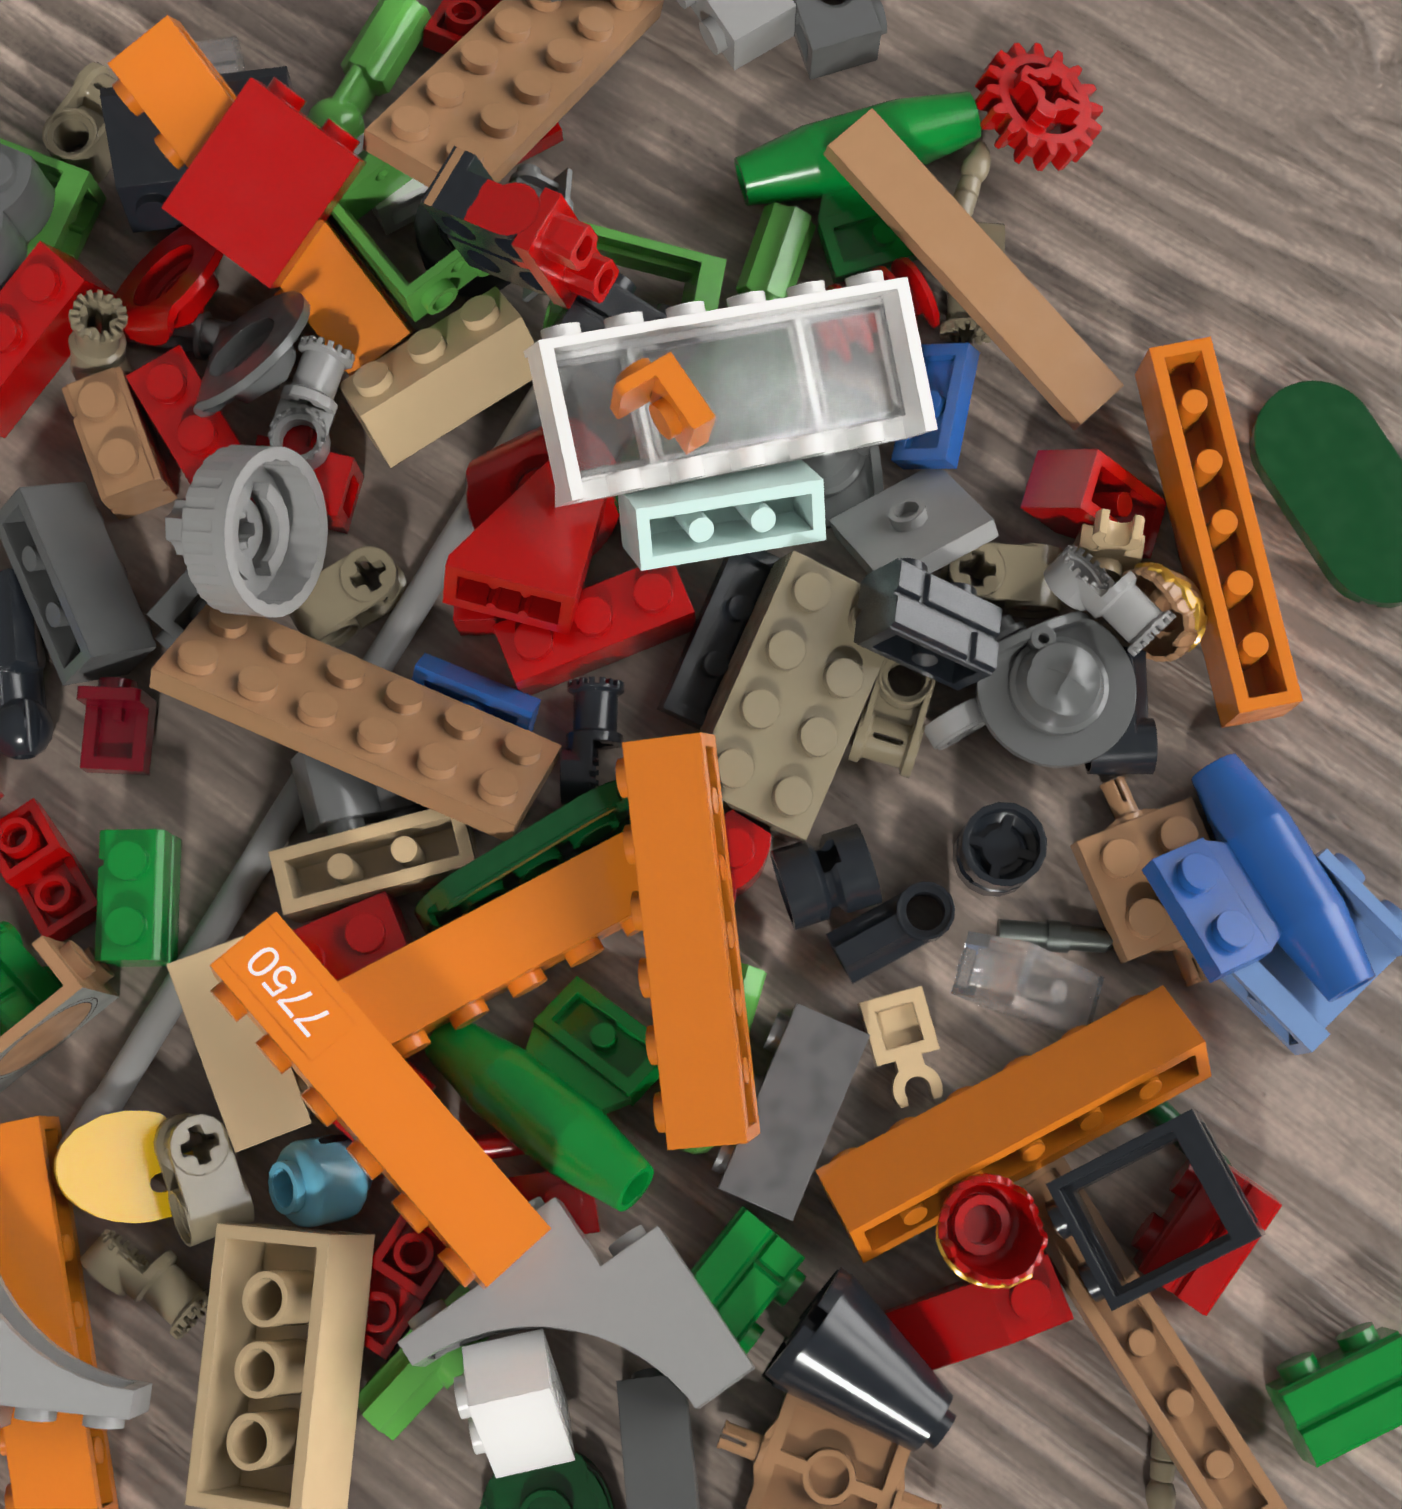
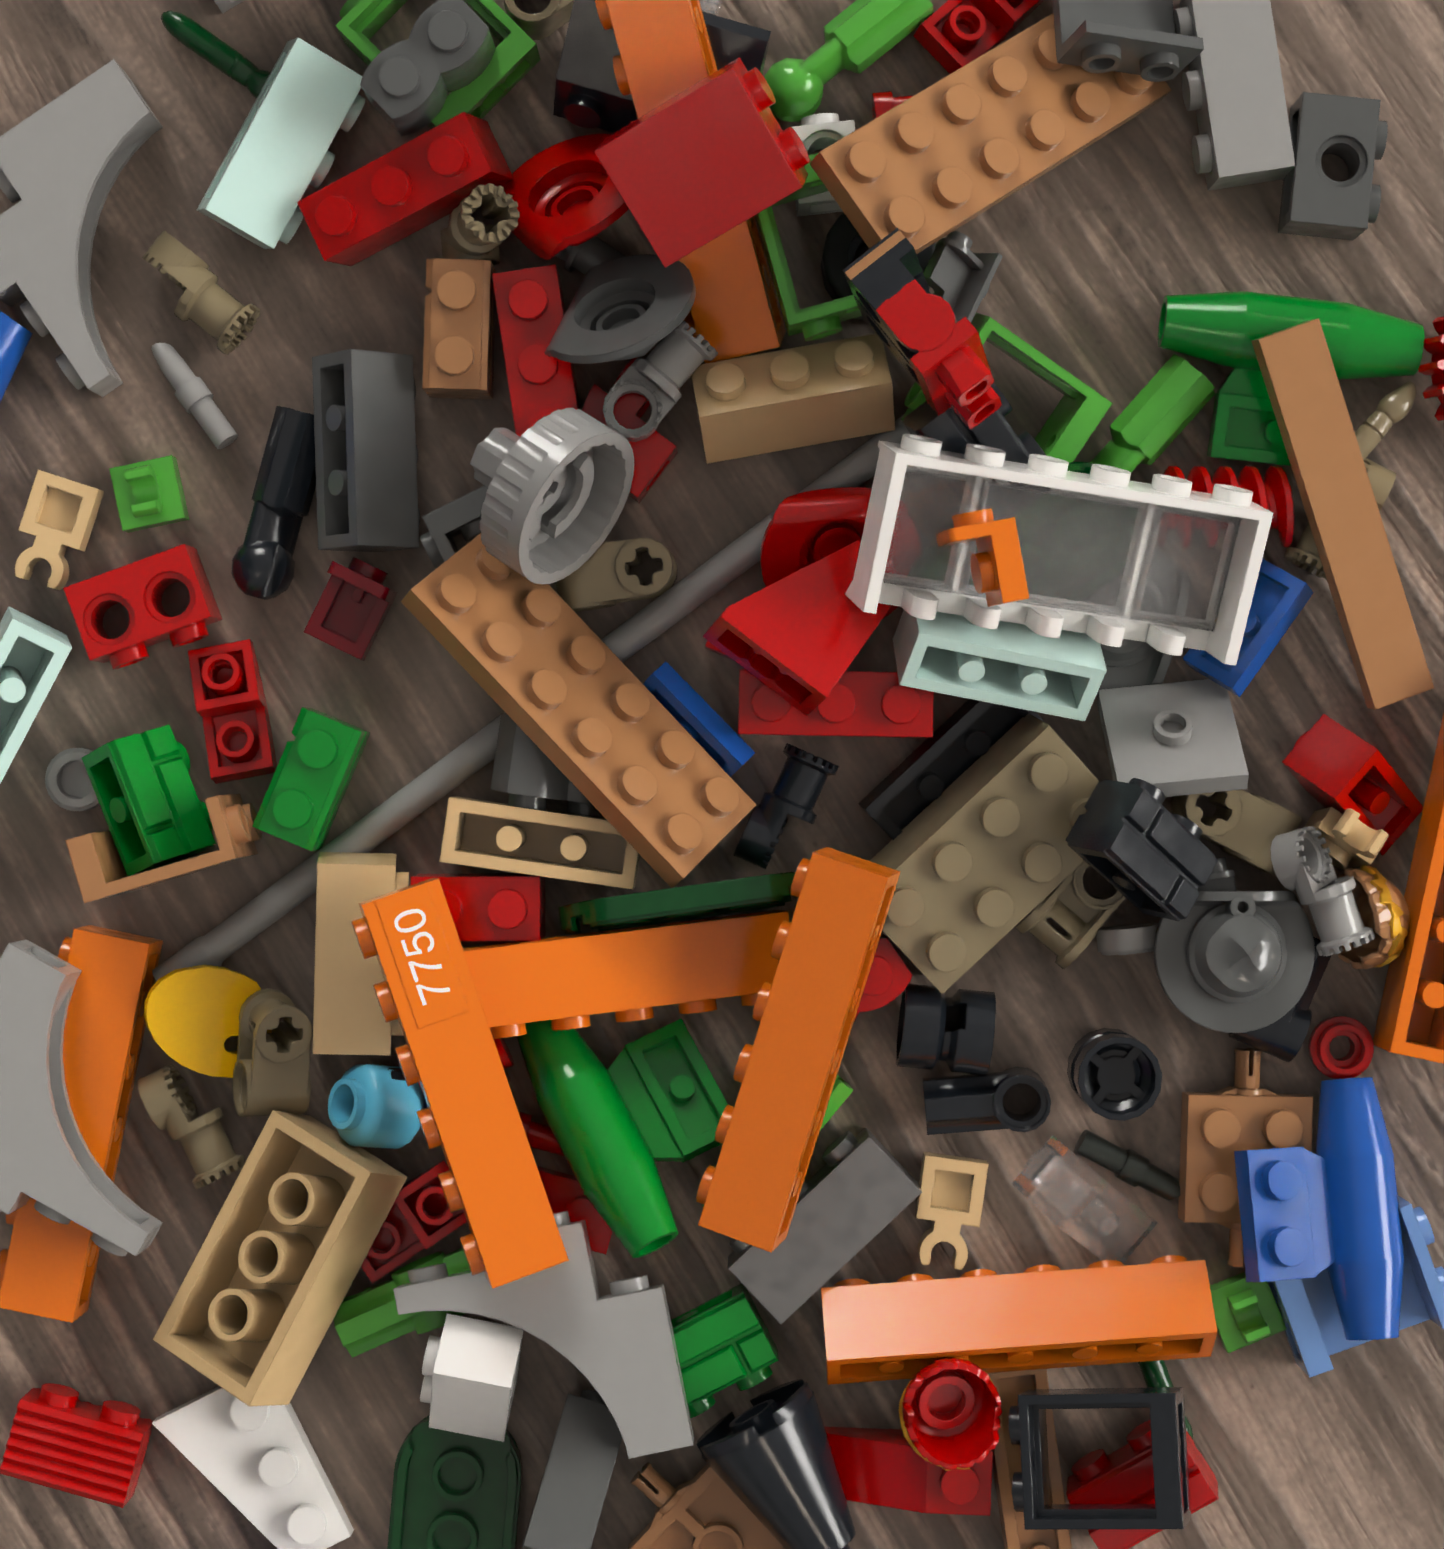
camera: 20 degrees right, 10 degrees up
(1204, 726) = (1360, 1050): none -> red plate
(1225, 1022) = (1244, 1312): none -> bright green tile

